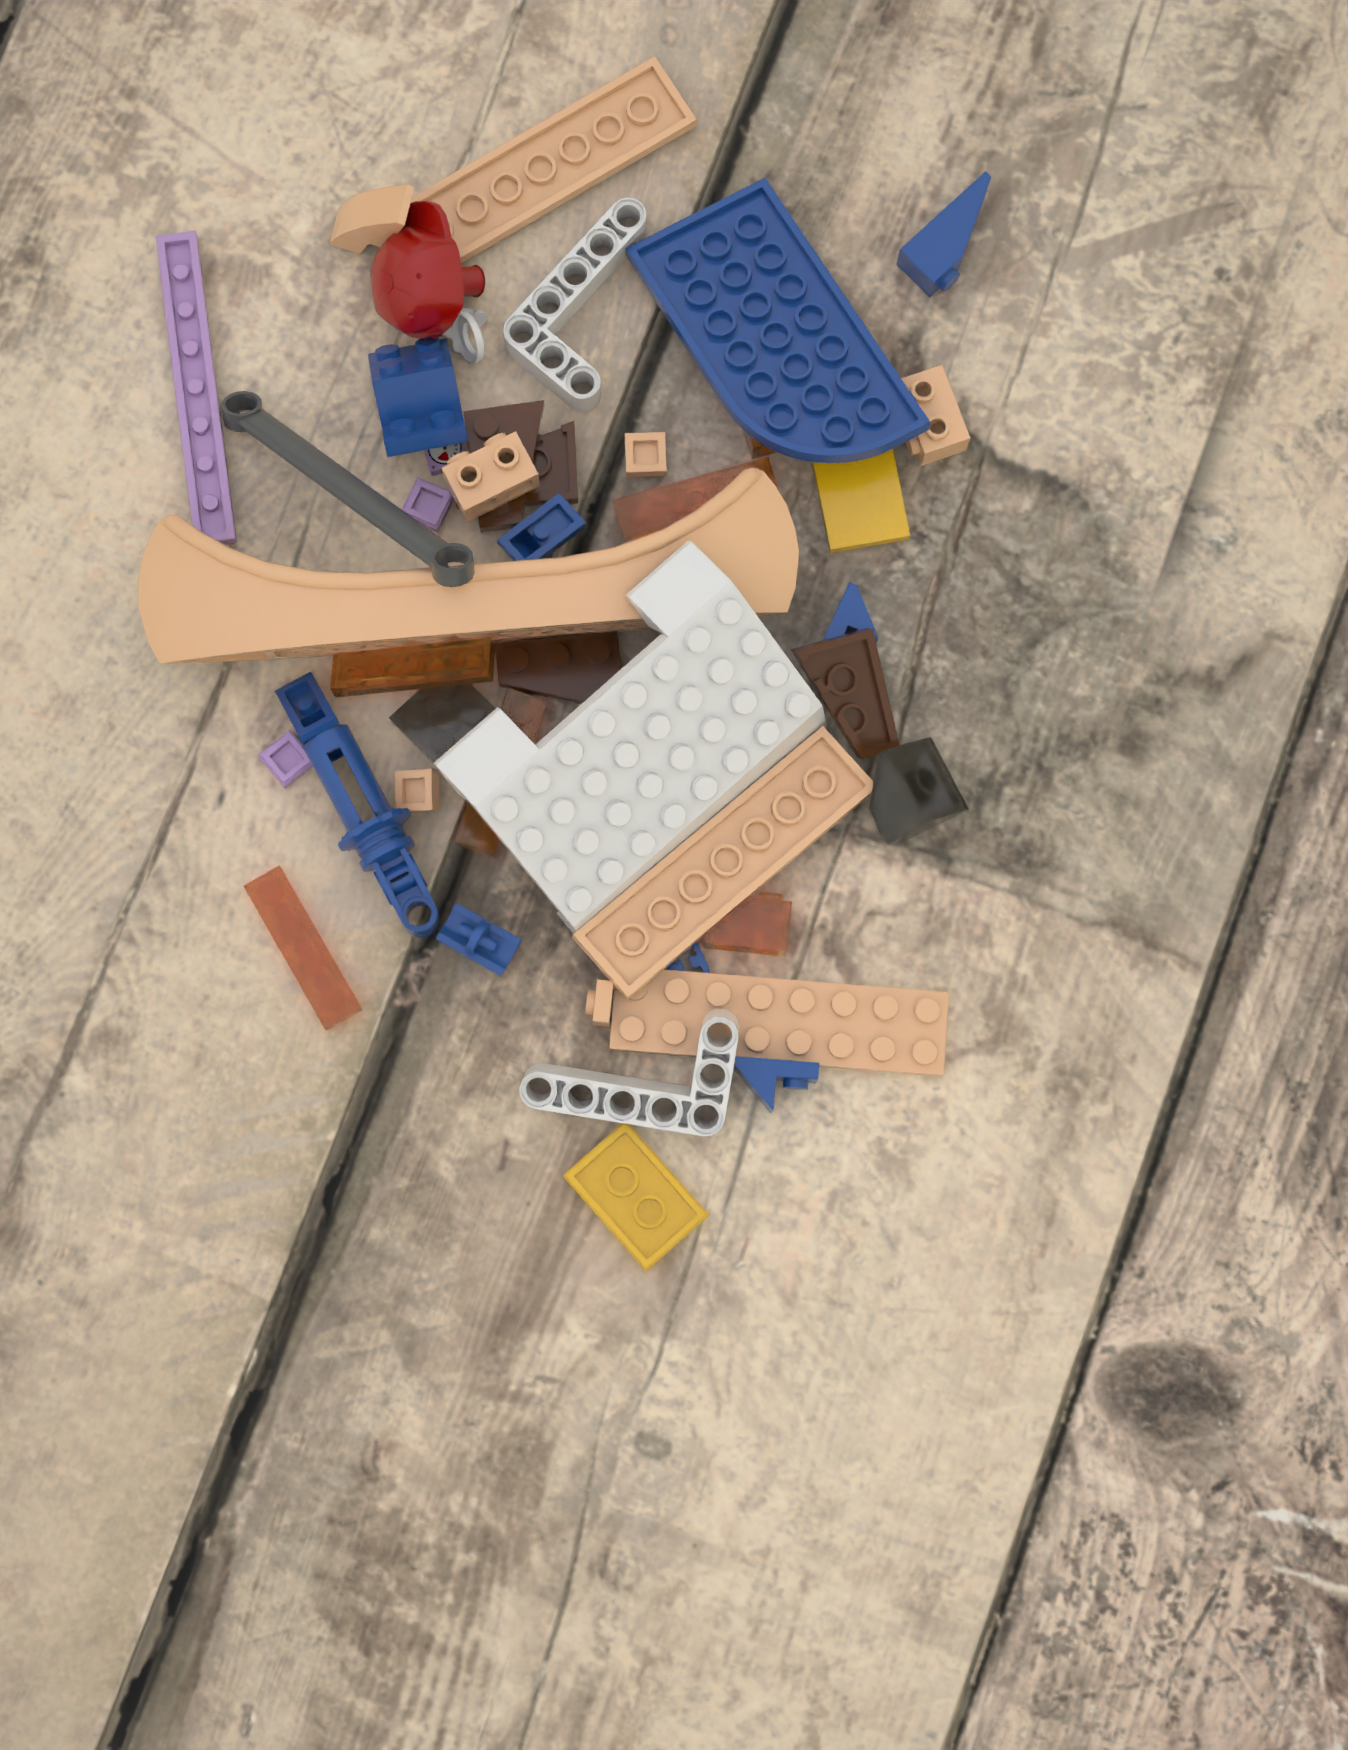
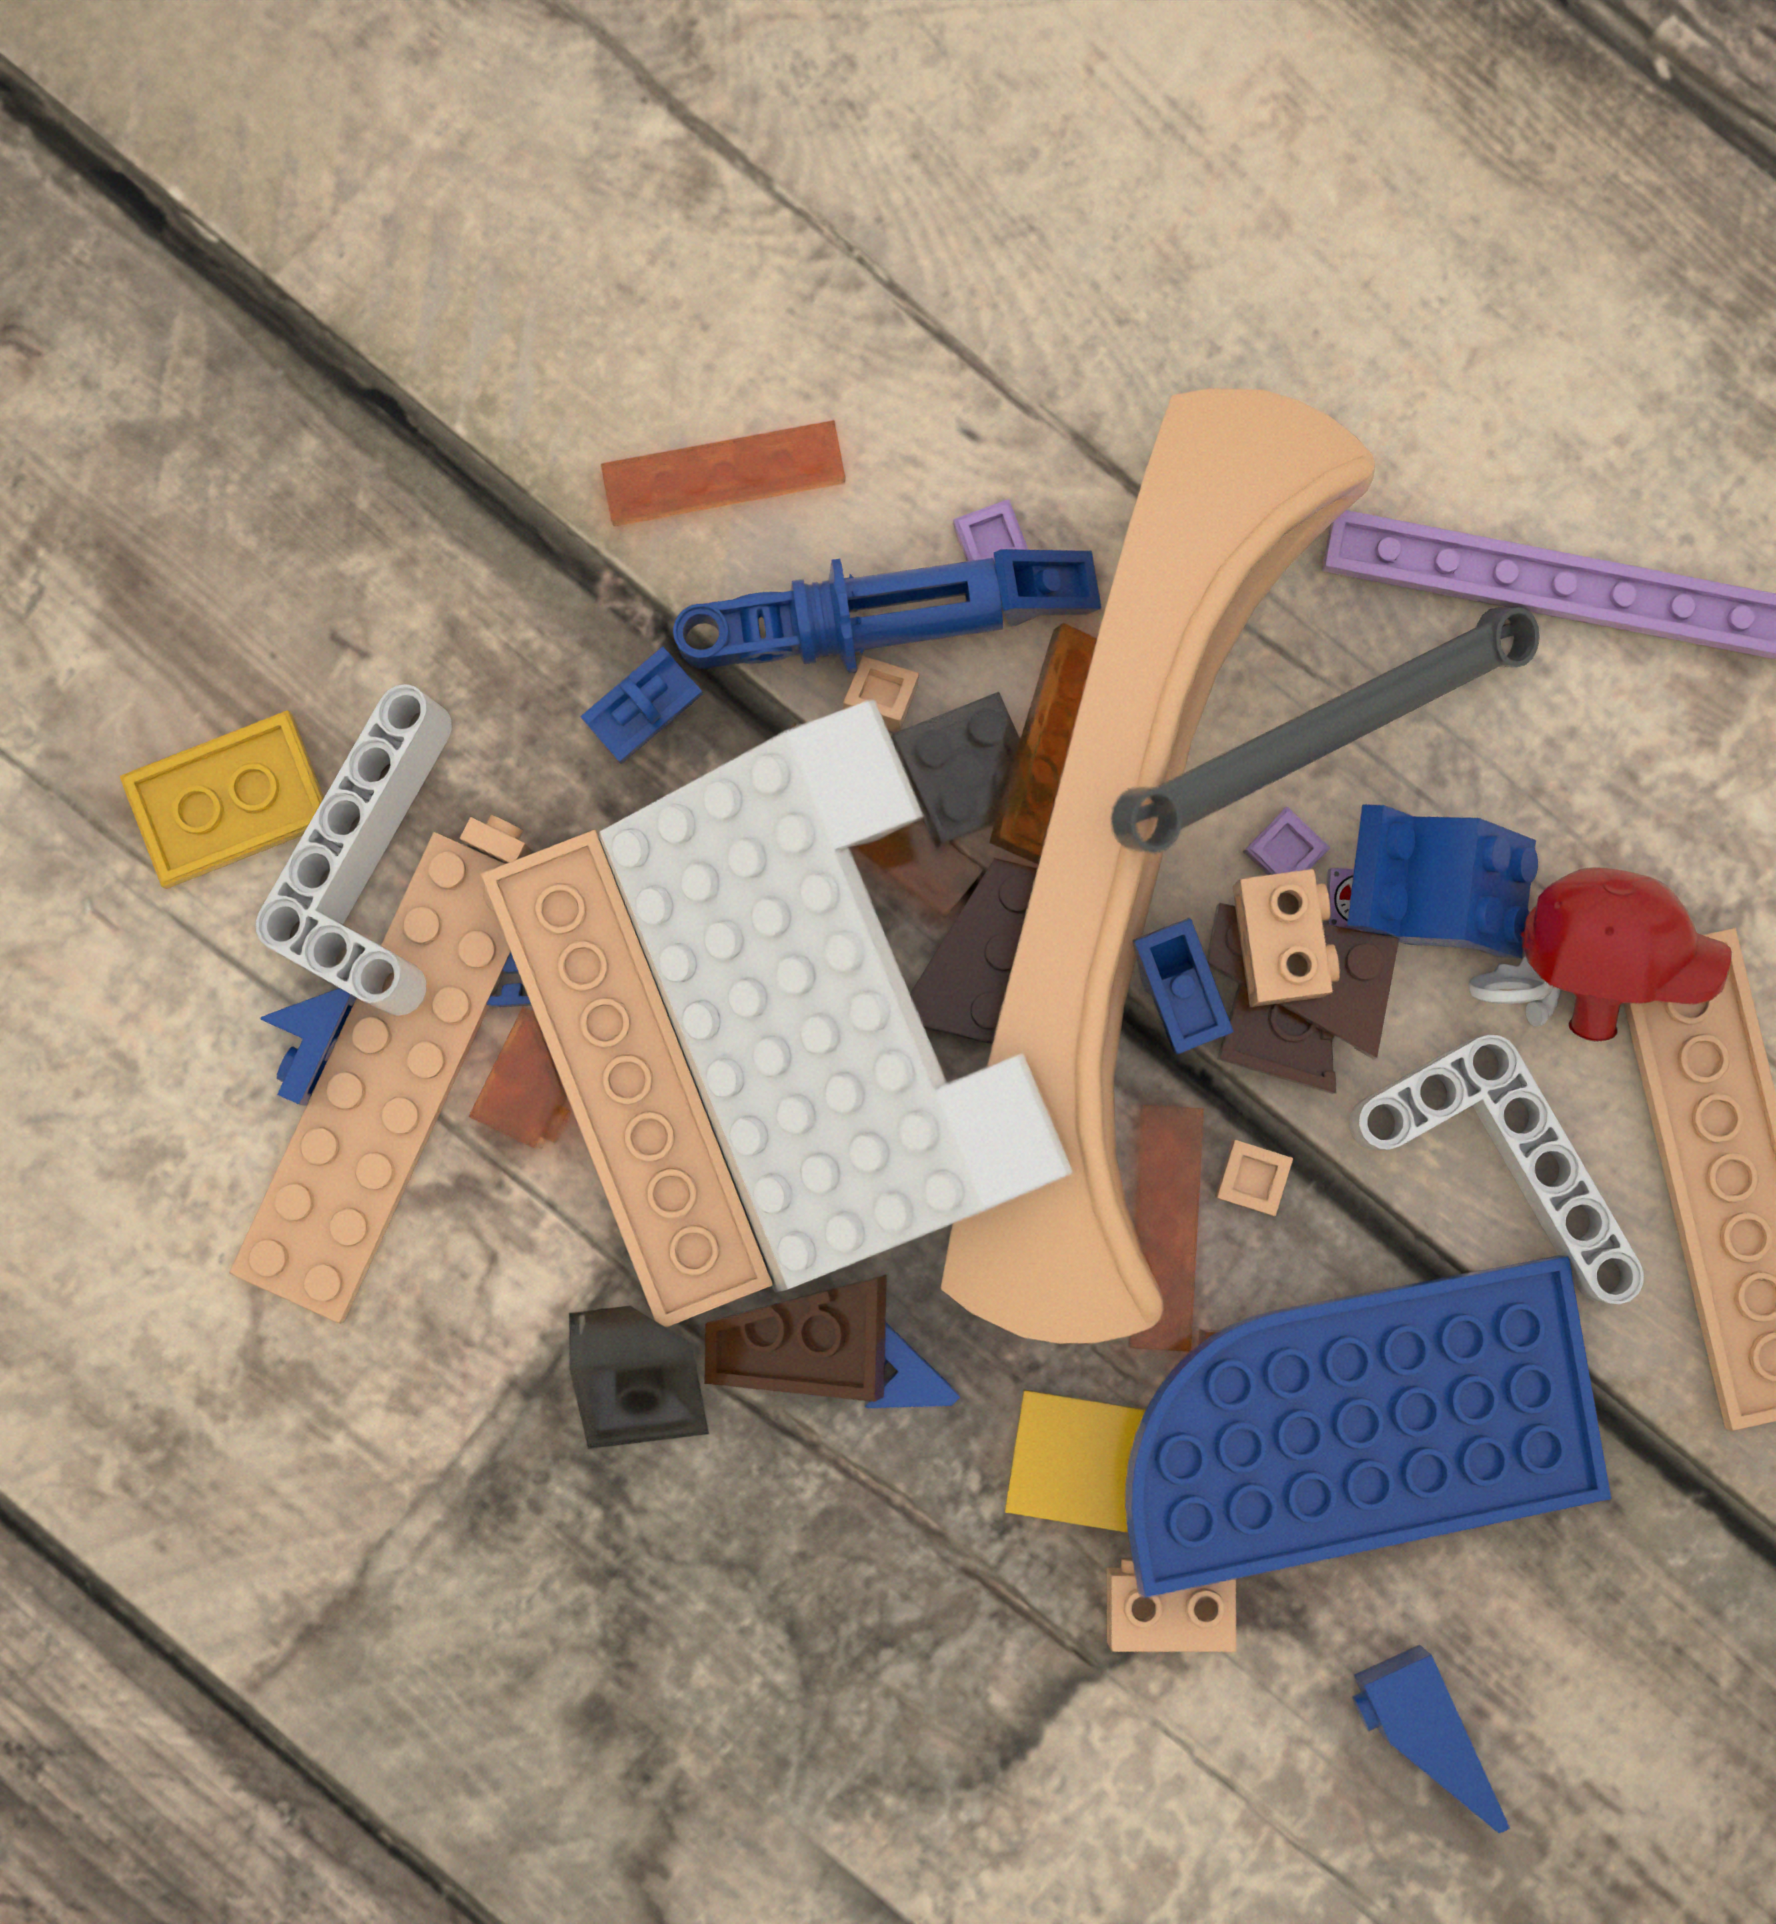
camera: 110 degrees right, 5 degrees up
(371, 217) = (1730, 904): light nougat slope -> none

